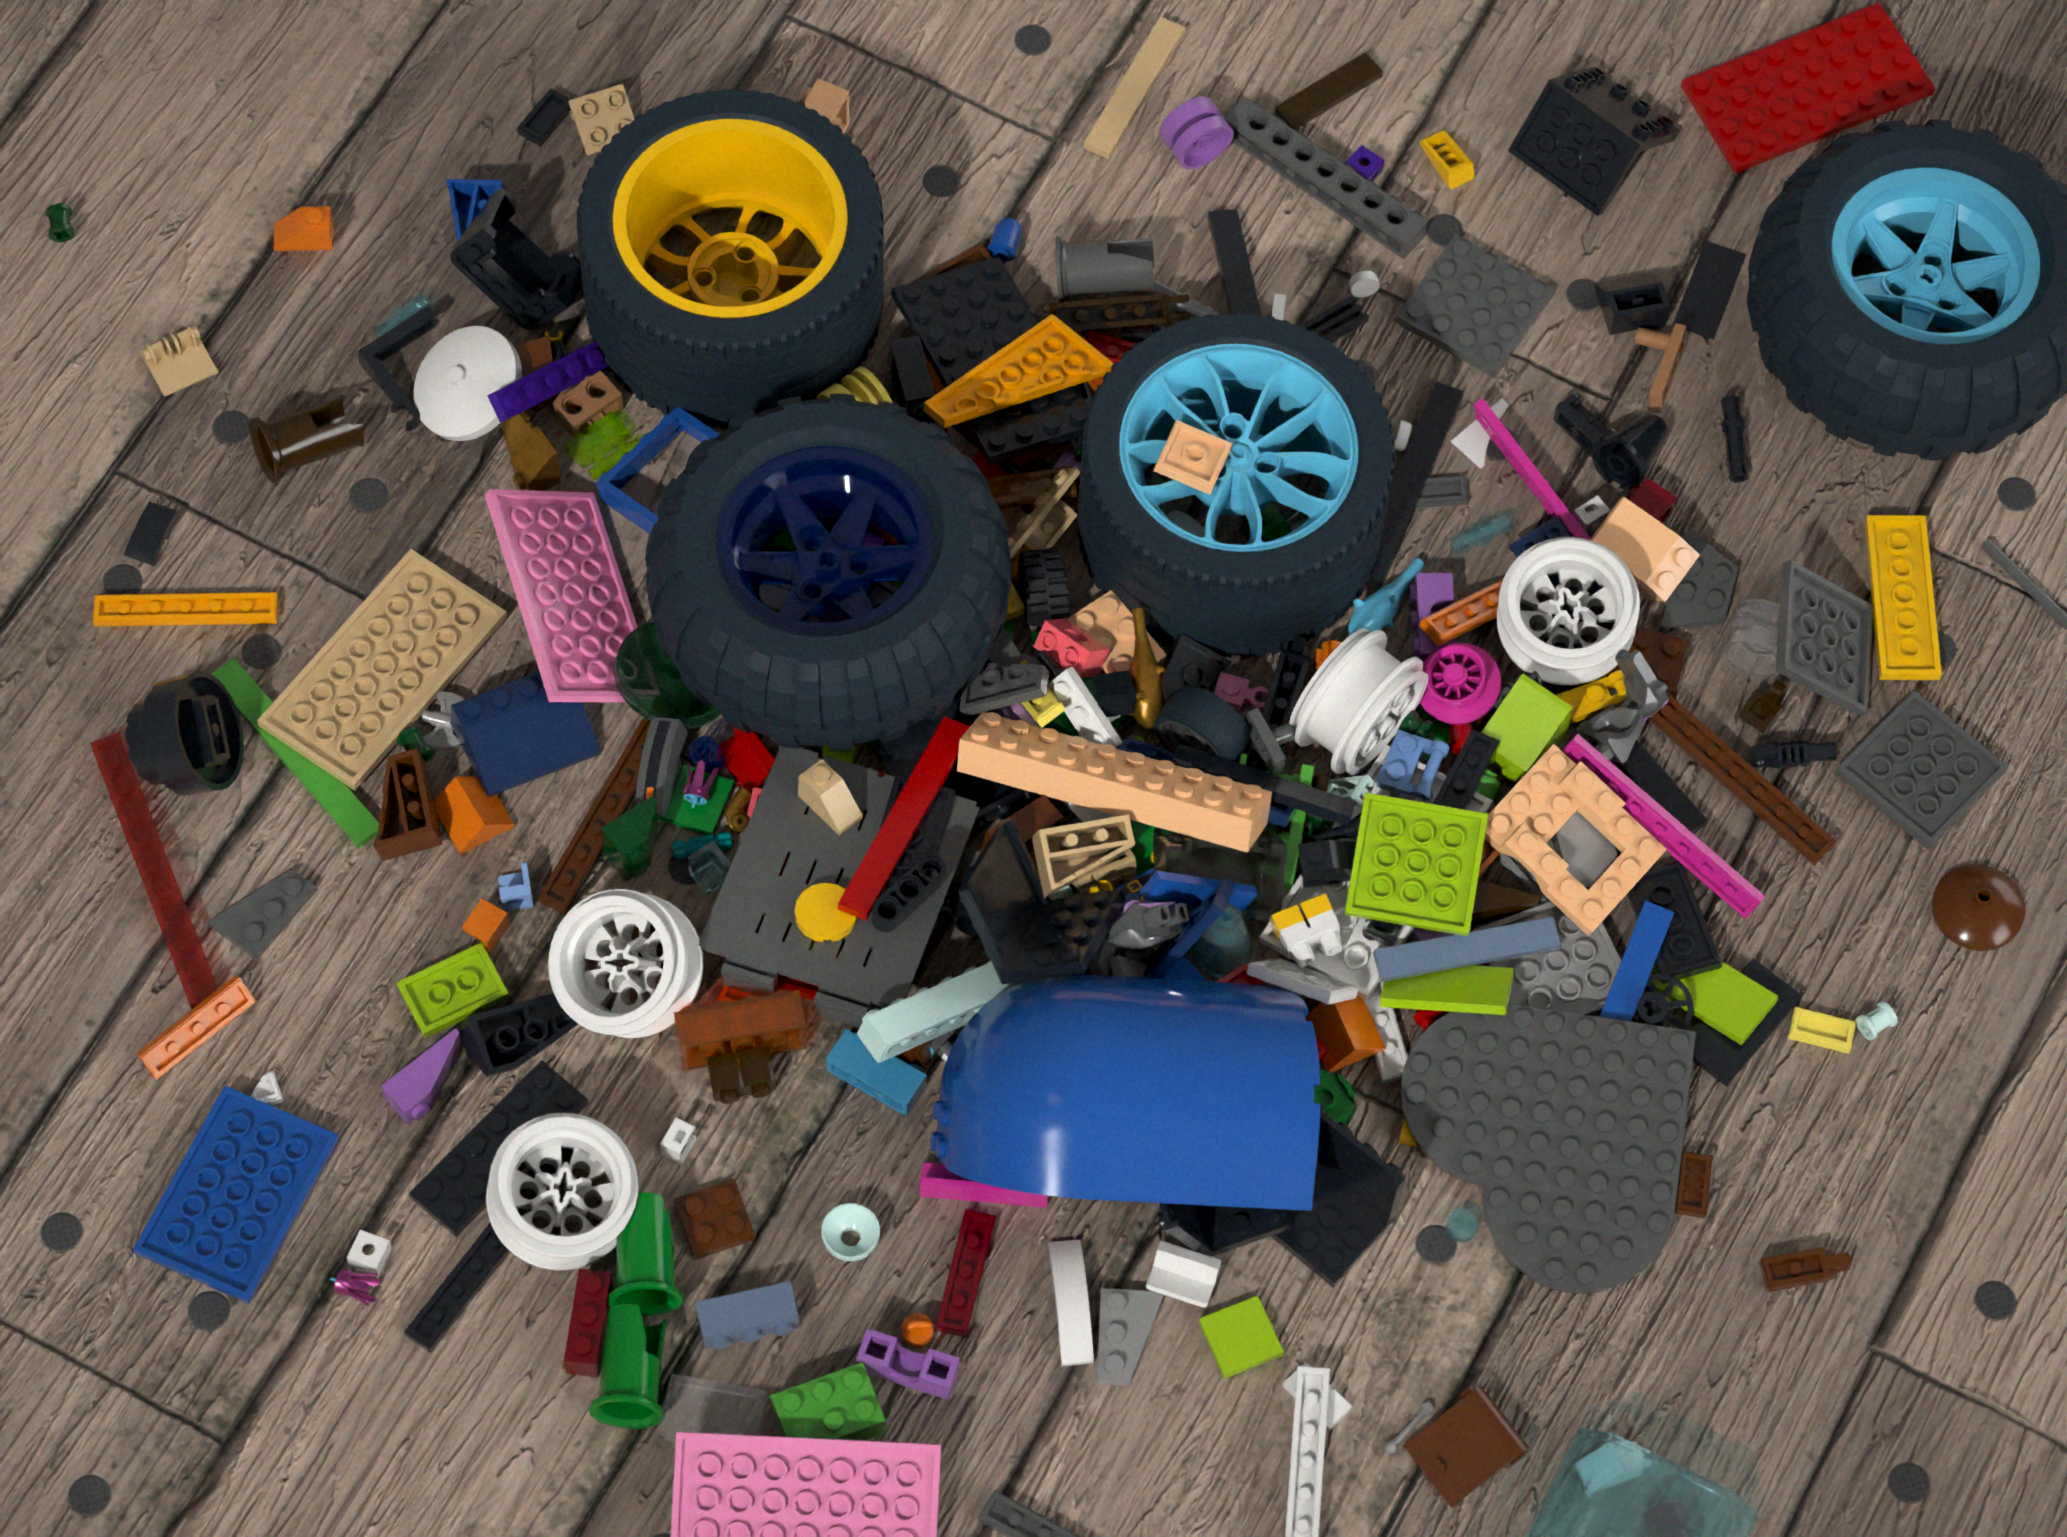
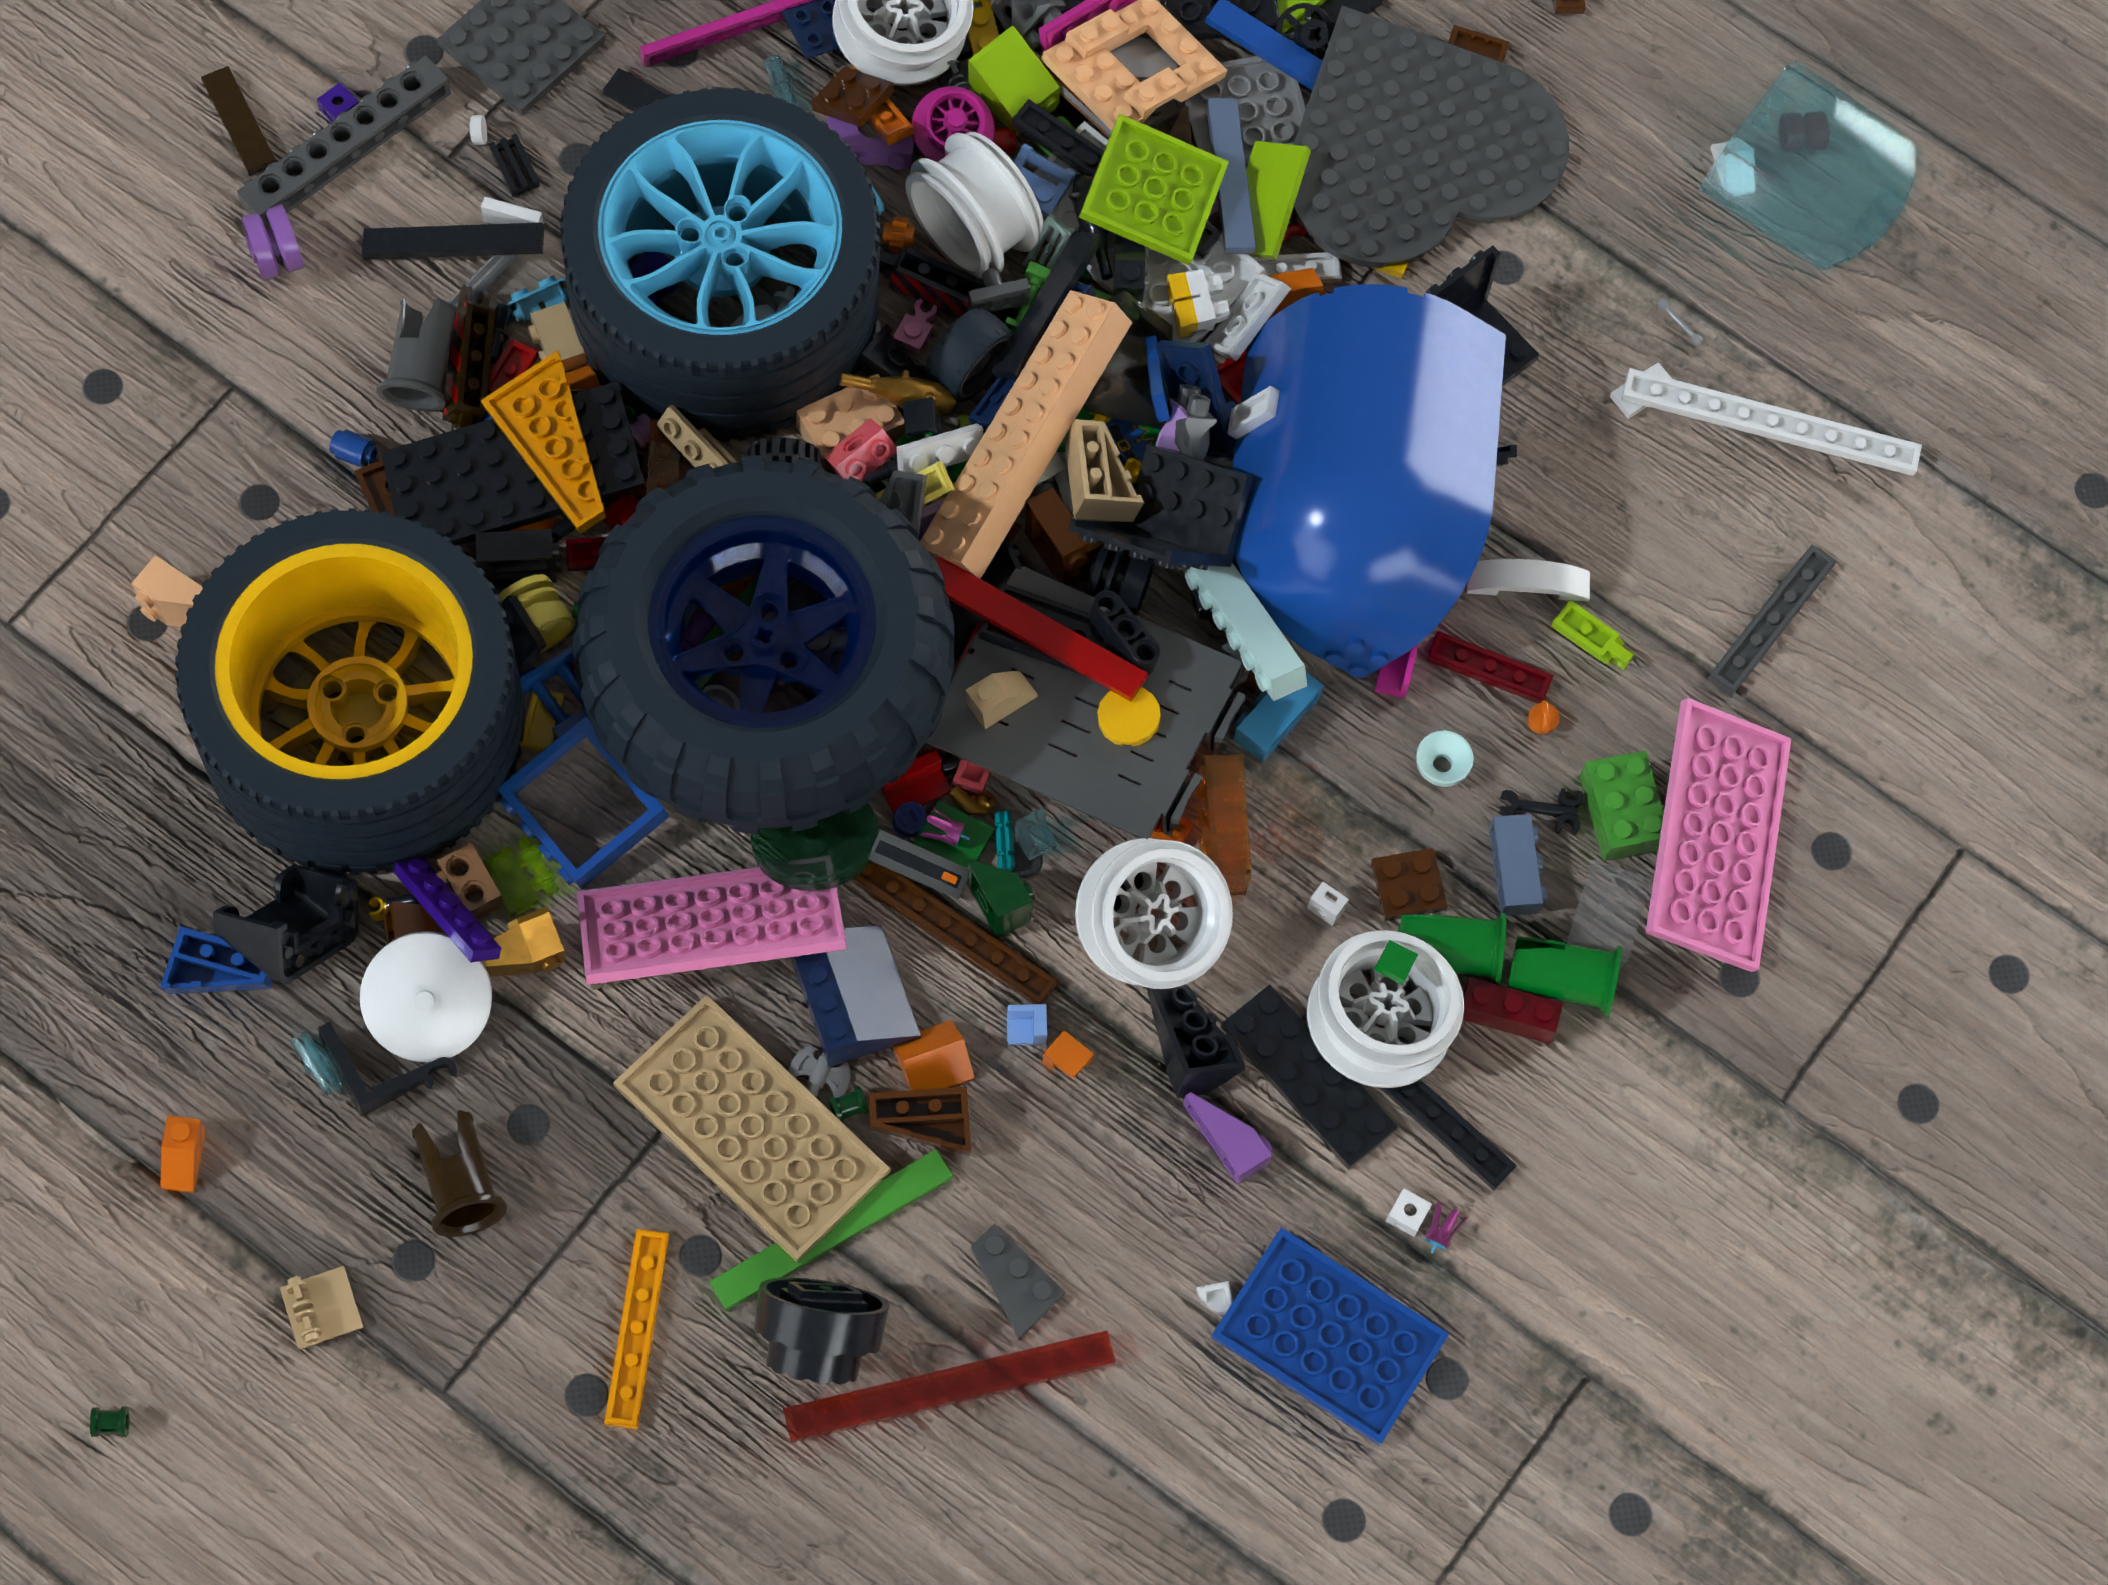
camera: 85 degrees left, 5 degrees up
(150, 533) = (538, 1355): black slope -> none
(196, 1027) = (1140, 1358): orange tile -> none
(452, 990) = (1133, 1099): lime plate -> none
(544, 117) = (86, 884): black tile -> none
(594, 1176) = (1395, 962): none -> green tile
(600, 116) = (108, 821): tan hinge -> none
(741, 1074) = (1266, 835): dark brown brick -> none
(817, 1362) = (1565, 810): none -> black bar
(836, 378) = (524, 634): none -> black plate
(888, 1360) = (1585, 726): medium lavender arch -> none
(1017, 1366) = (1592, 635): none -> lime hinge
(1123, 1331) = (1563, 540): light grey wing -> none
(1134, 87) = (189, 298): tan tile -> none
(1171, 978) = (1253, 412): none -> white tile
(1183, 1274) = (1520, 479): white panel -> none
(1193, 457) = (724, 269): light nougat tile -> none
(1241, 1337) = (1580, 443): lime tile -> none
(1456, 173) = (340, 21): yellow slope -> none
(1461, 1225) = (1491, 236): clear light blue tile -> none
(1469, 588) = (852, 96): none -> reddish brown plate
(1470, 1442) = (1705, 273): reddish brown door -> none
(1474, 439) = (669, 72): white sticker -> none

